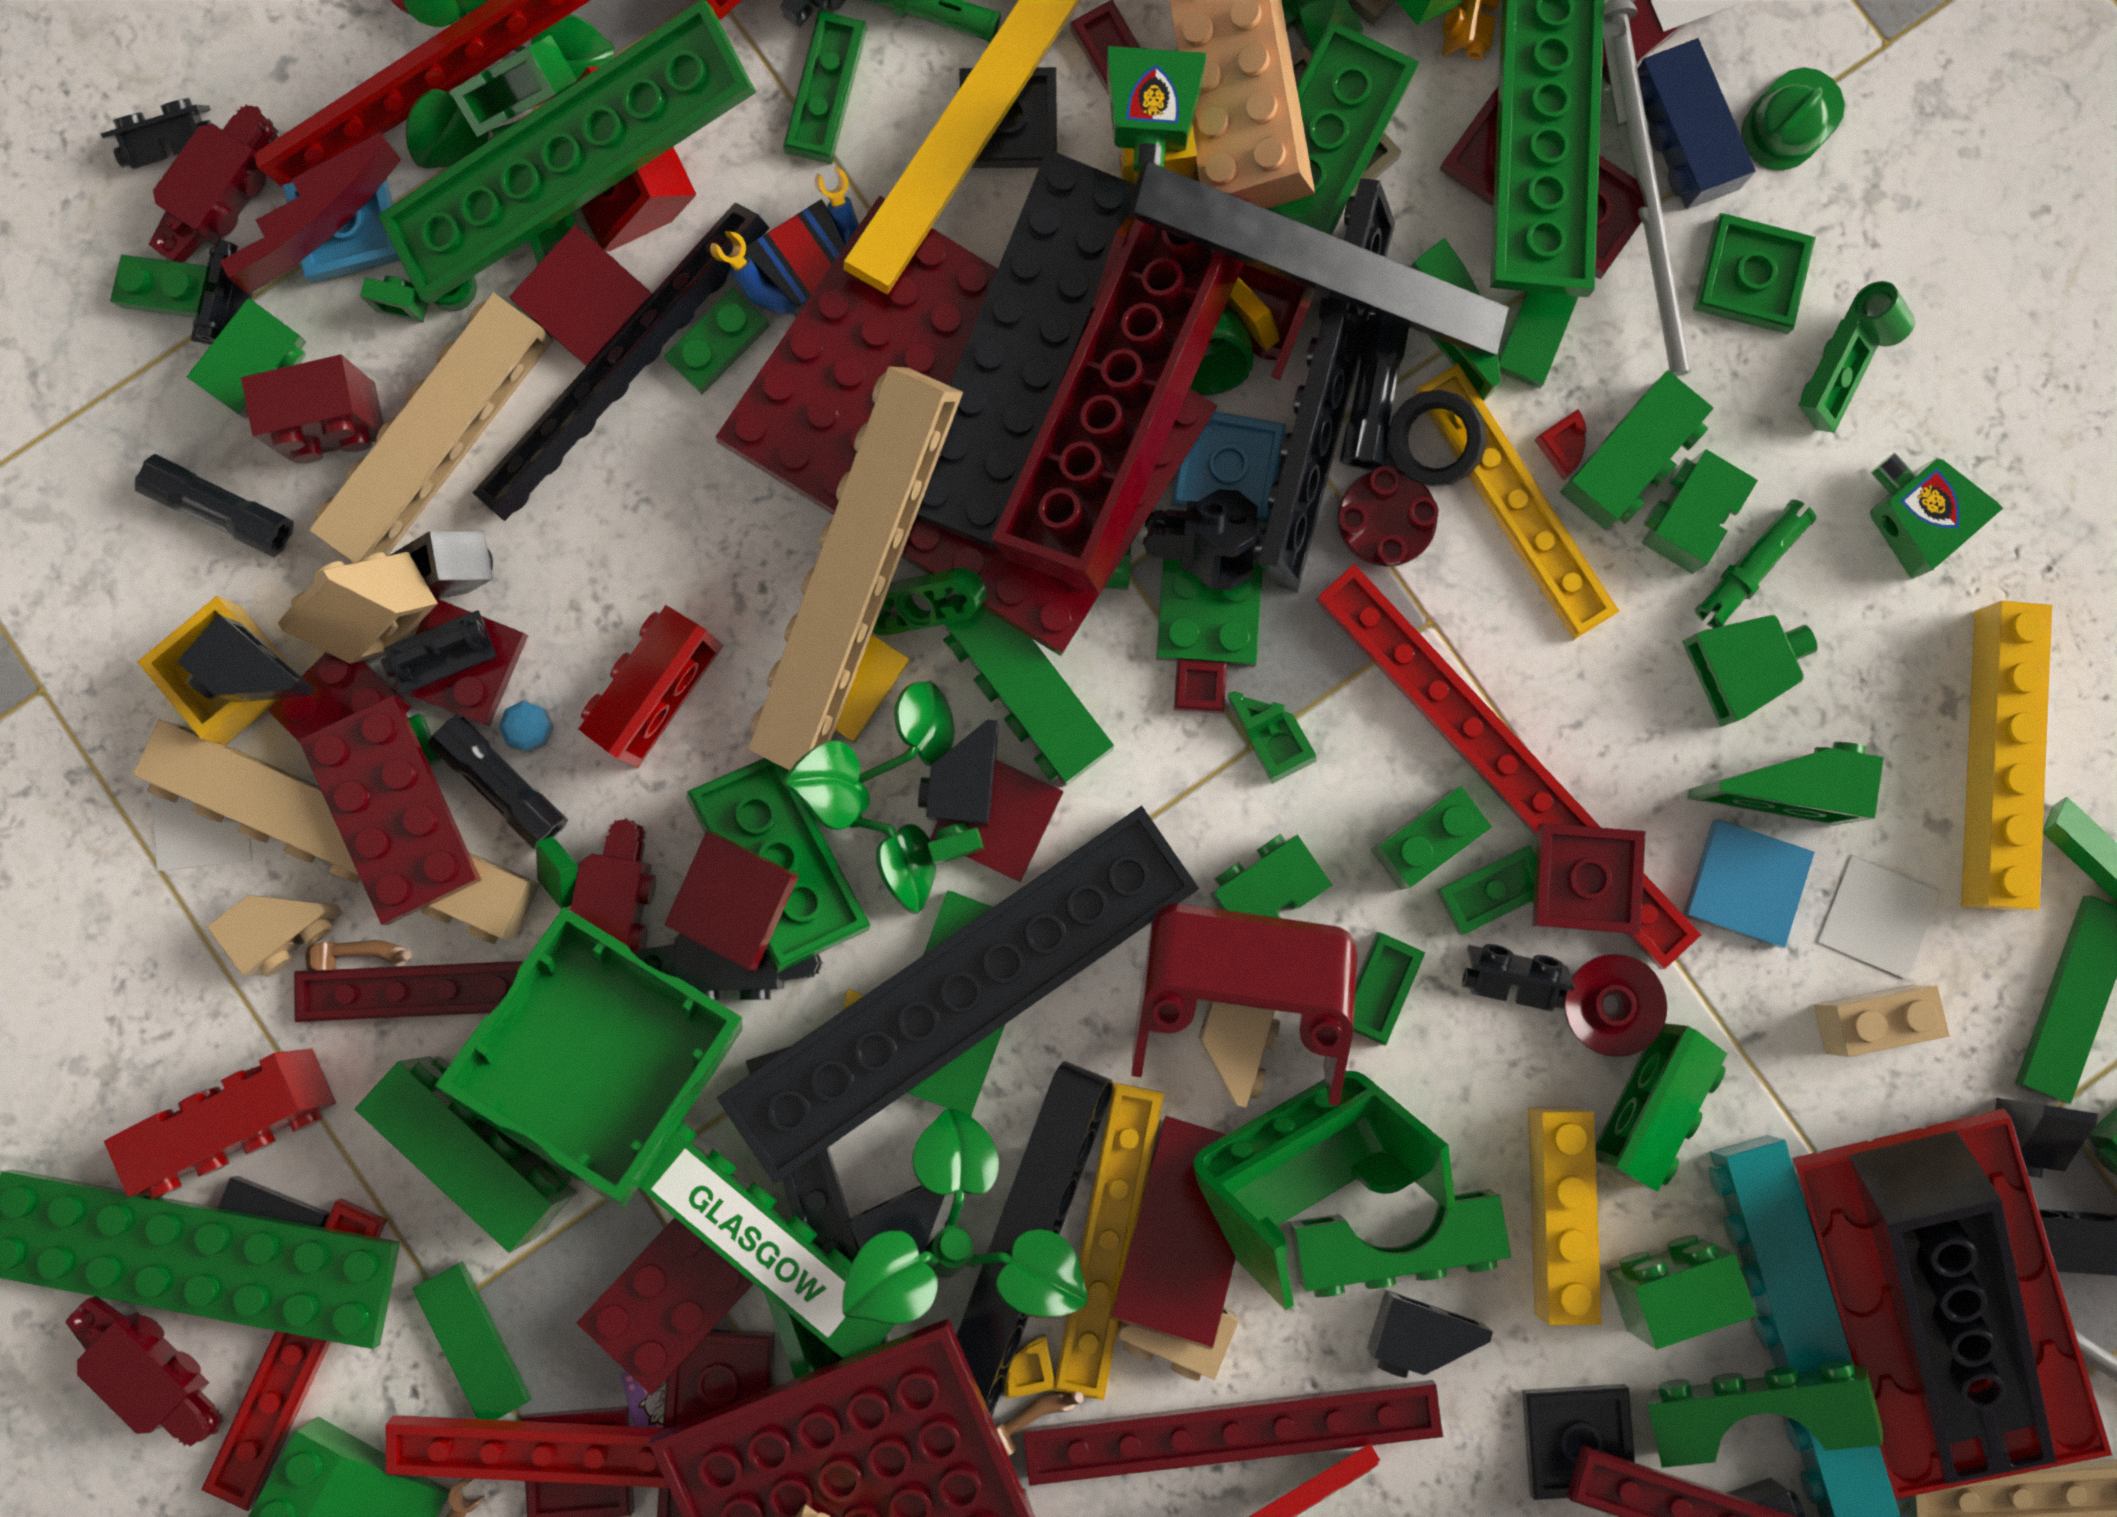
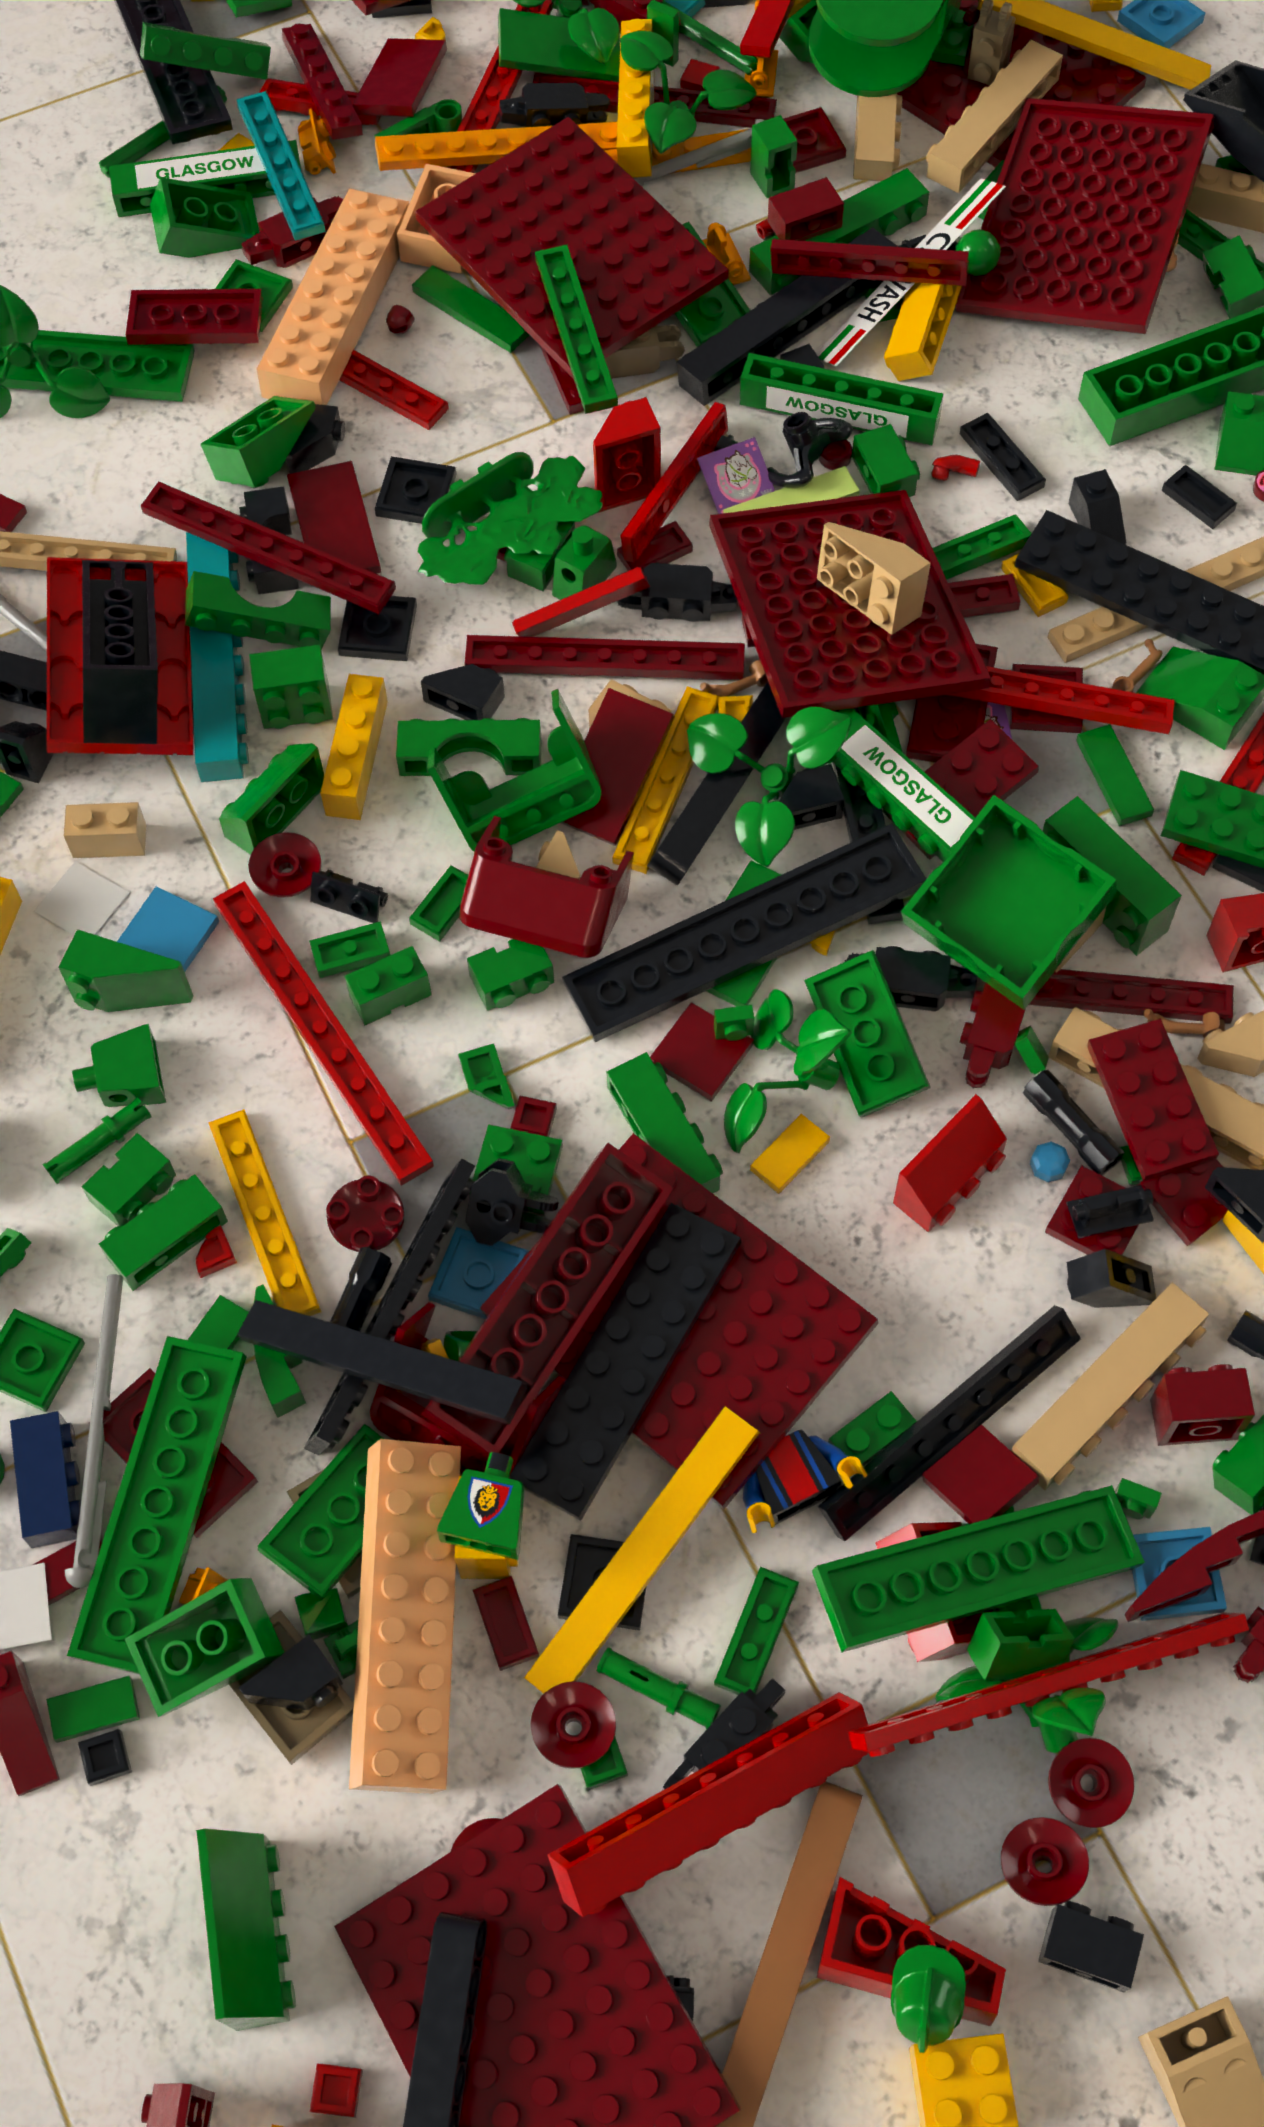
camera: 170 degrees left, 20 degrees down
(360, 606) = (1165, 1245): tan slope -> none
(731, 900) = (902, 998): dark red tile -> none
(855, 564) = (778, 1203): tan brick -> none
(934, 588) = (734, 1189): green beam -> none
(963, 779) = (721, 1065): black slope -> none
(1401, 426) = (329, 1238): black tyre -> none
(1589, 878) = (283, 937): dark red plate -> none

